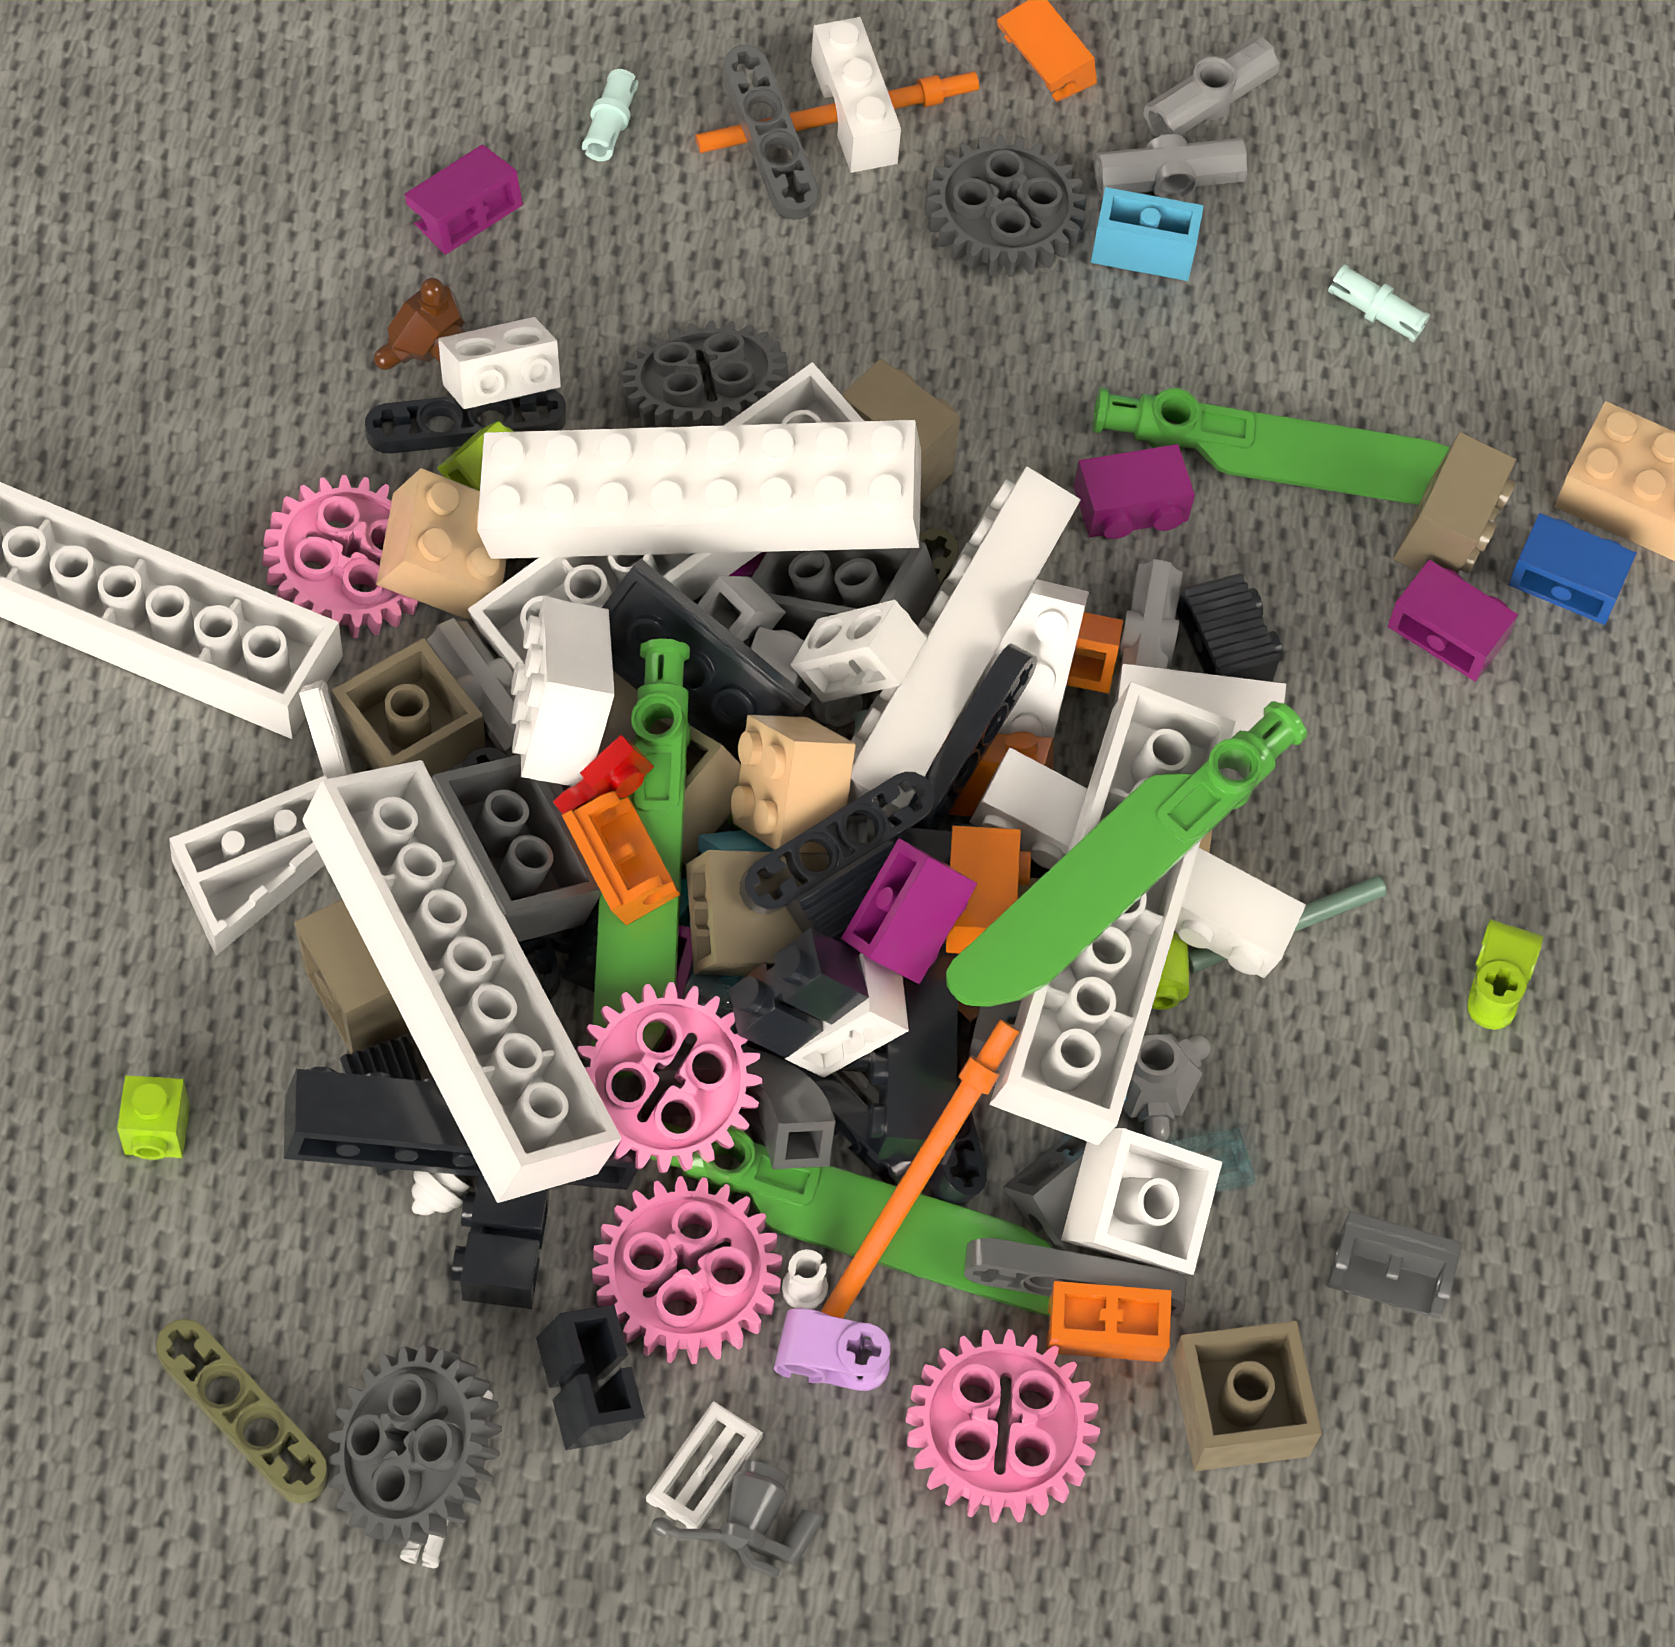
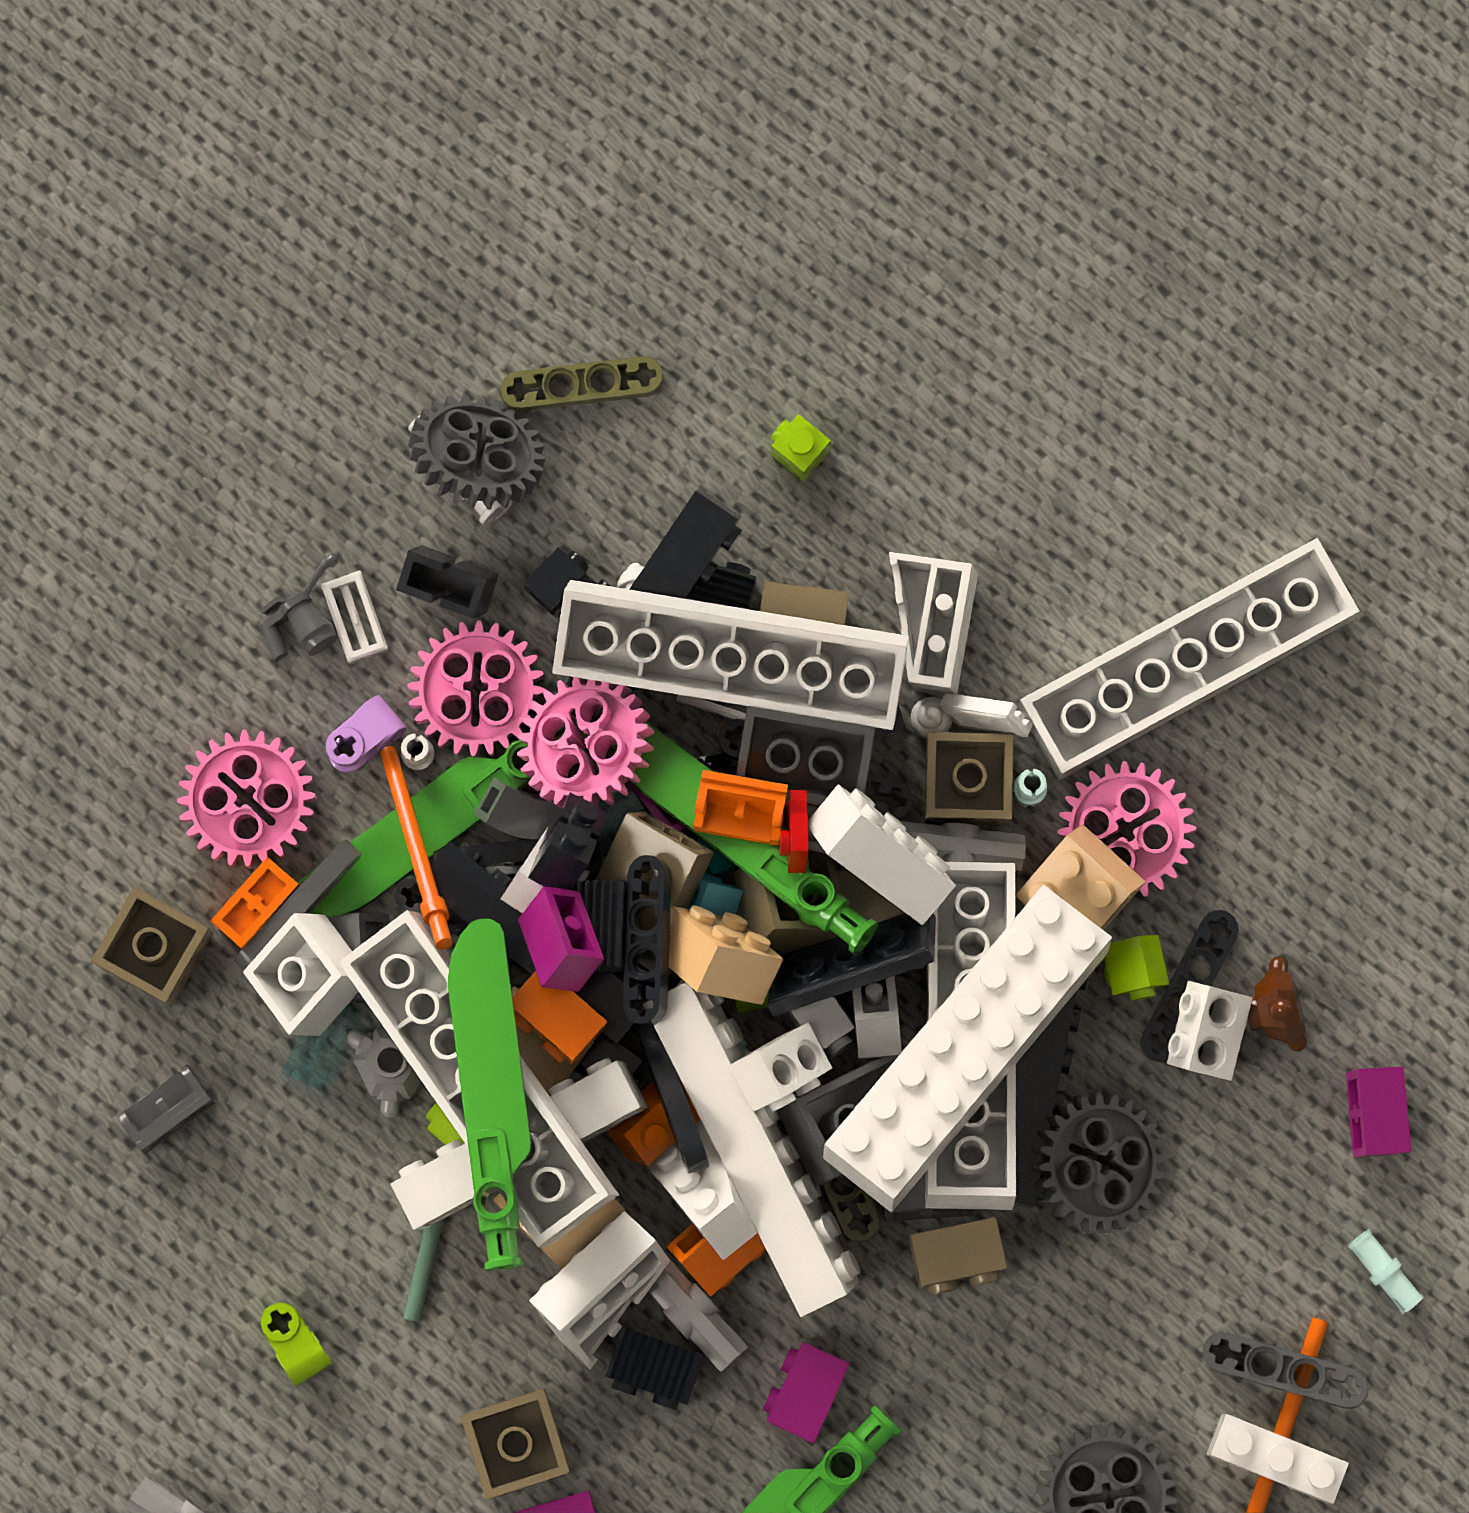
camera: 135 degrees right, 20 degrees up
(373, 639) = (1036, 780): none -> light aqua pin
(1411, 696) = (515, 1444): none -> dark tan brick

